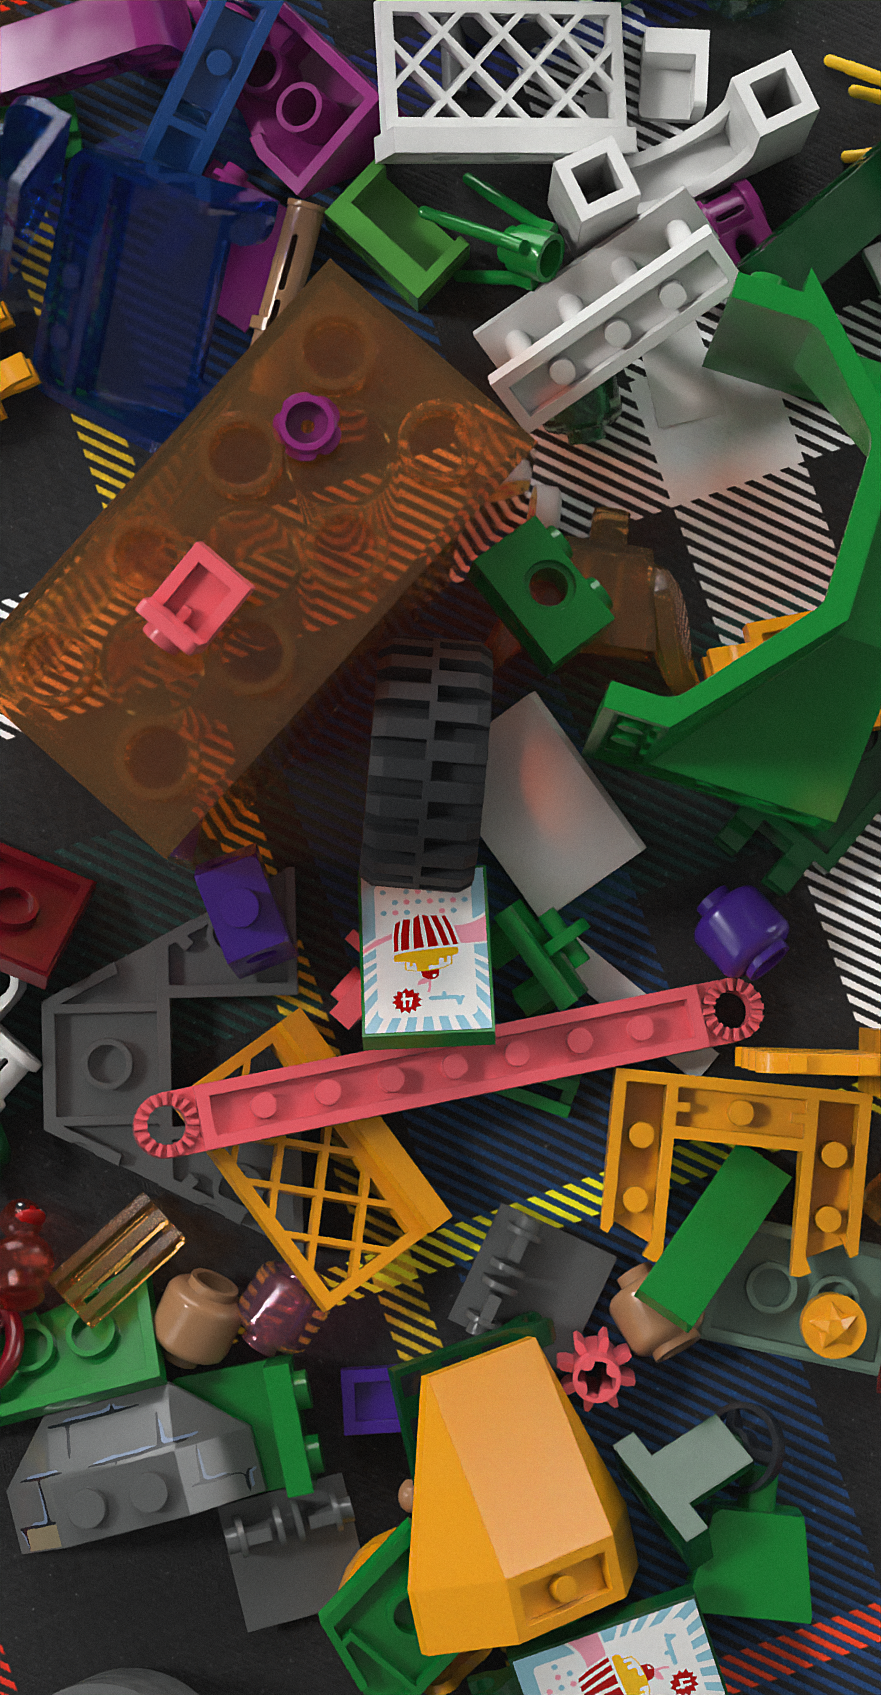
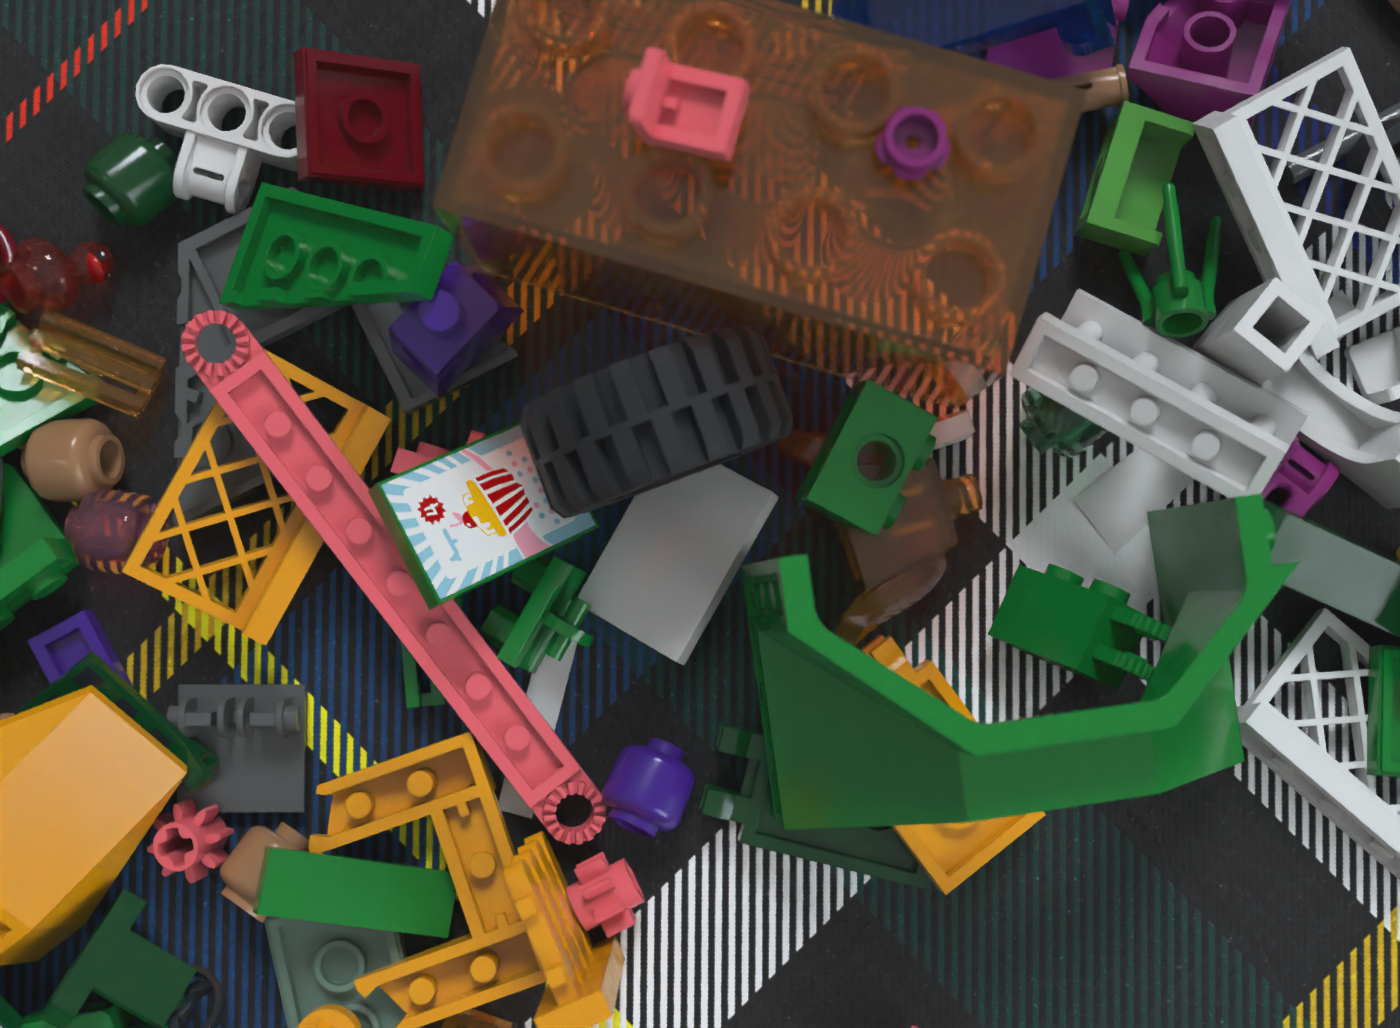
camera: 70 degrees right, 0 degrees up
(131, 987) = (331, 254): none -> green wing
(775, 482) = (1076, 625): none -> green hinge
(819, 1015) = (605, 894): none -> coral gear

